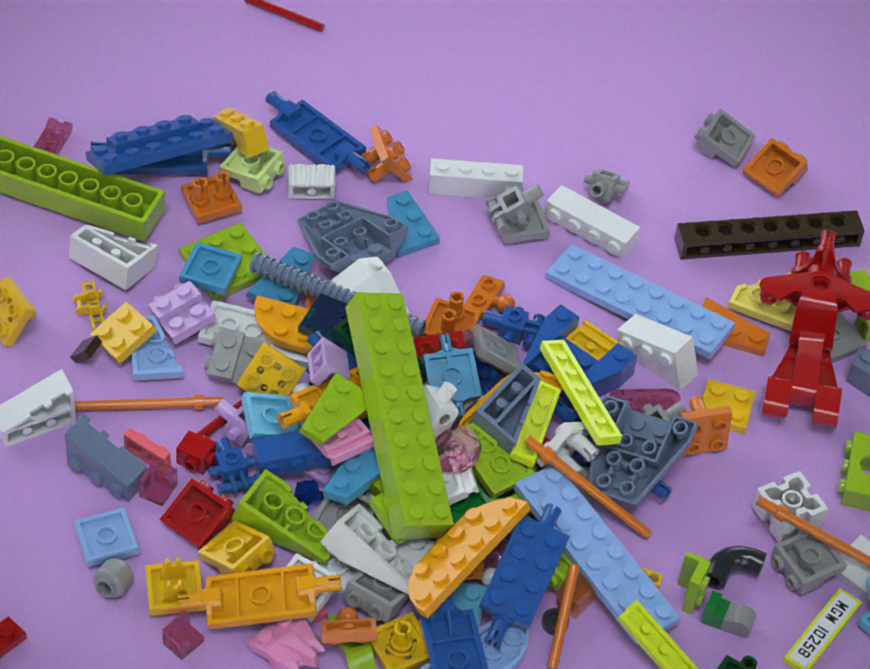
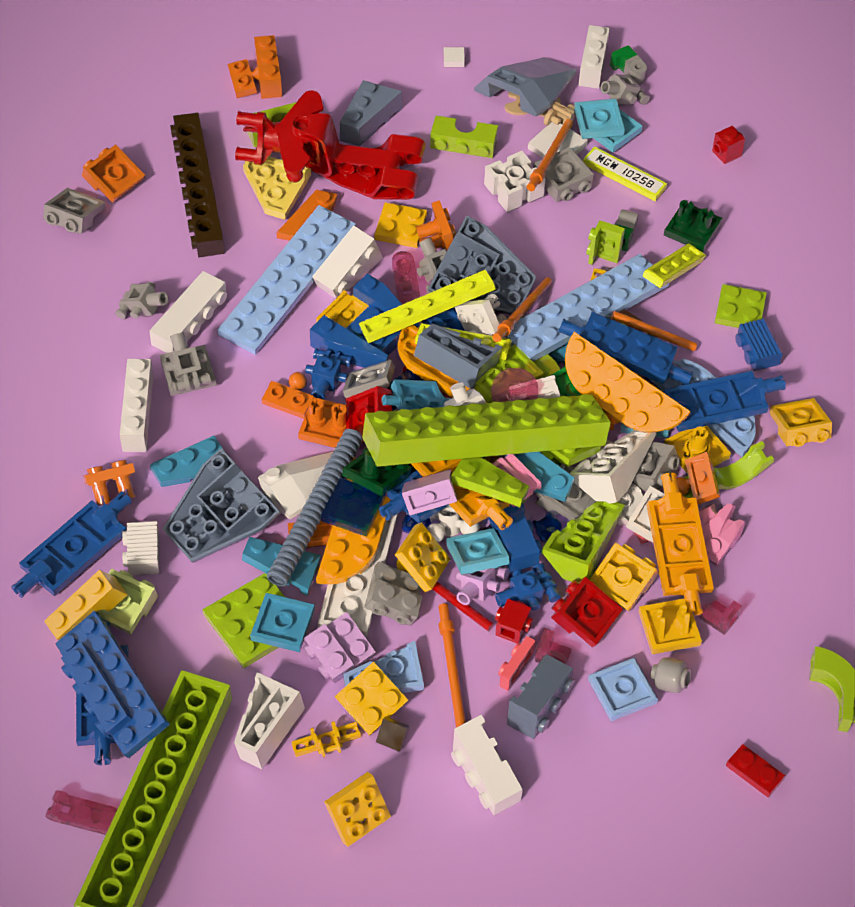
camera: 90 degrees left, 5 degrees up
(211, 197) = (168, 638): orange plate -> none
(733, 560) = (570, 223): black cylinder -> none

